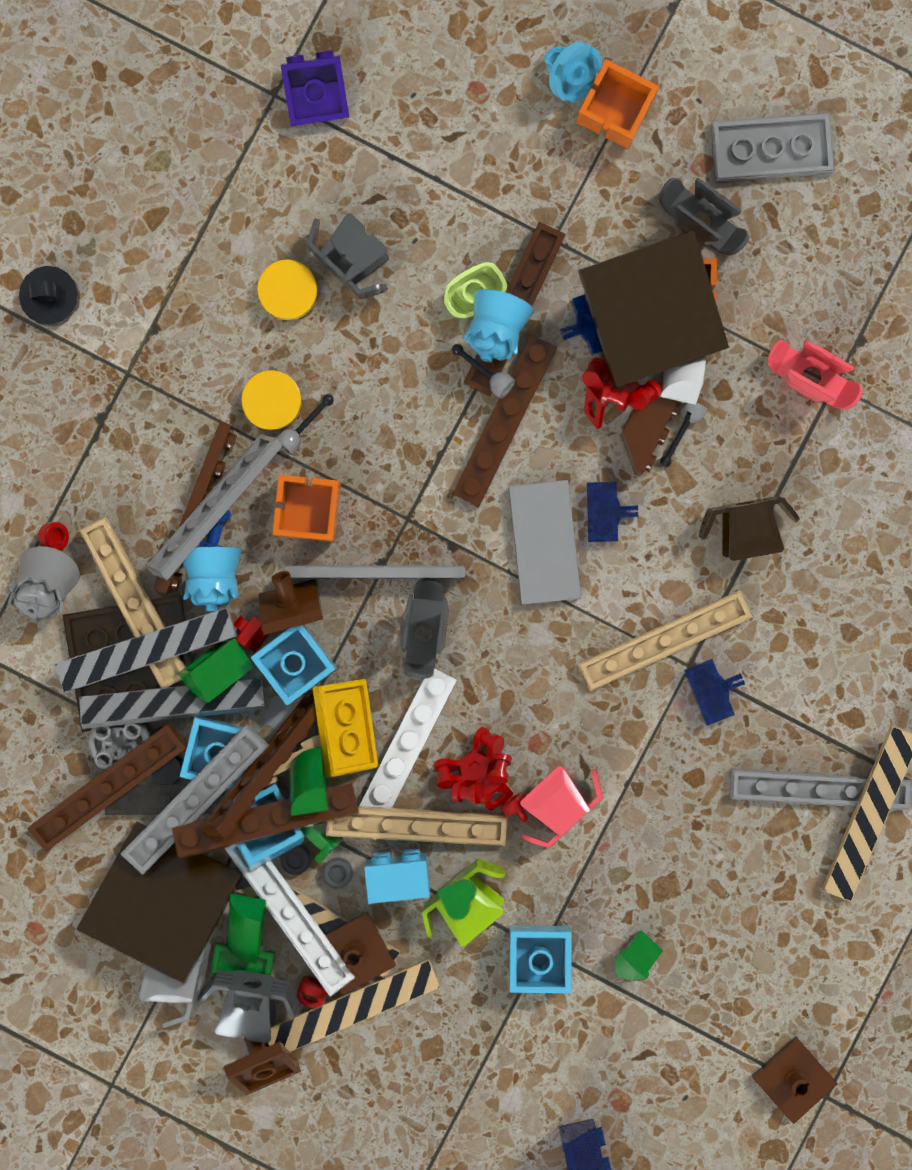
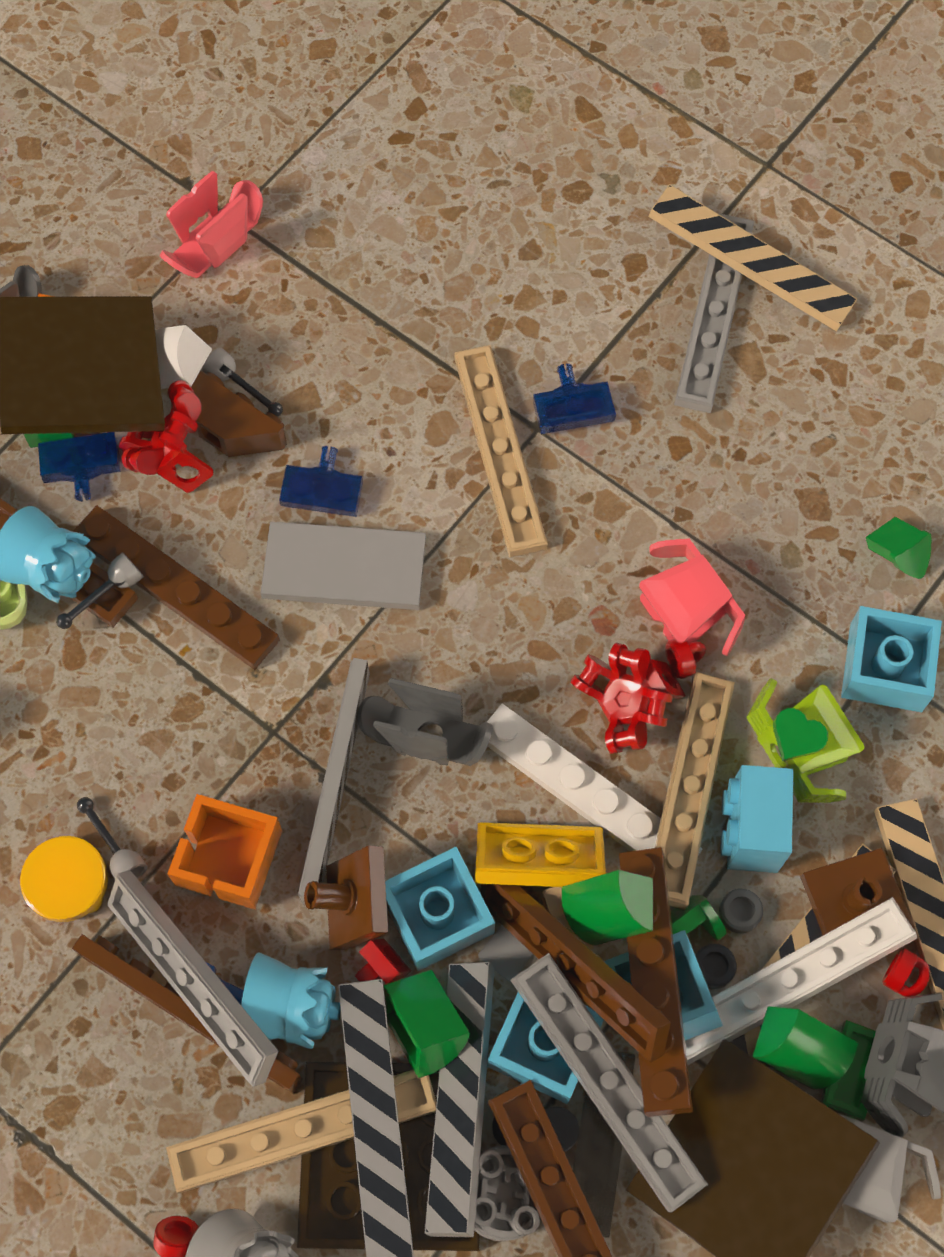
camera: 80 degrees left, 20 degrees down
(748, 527) = (386, 320): dark brown piece -> none

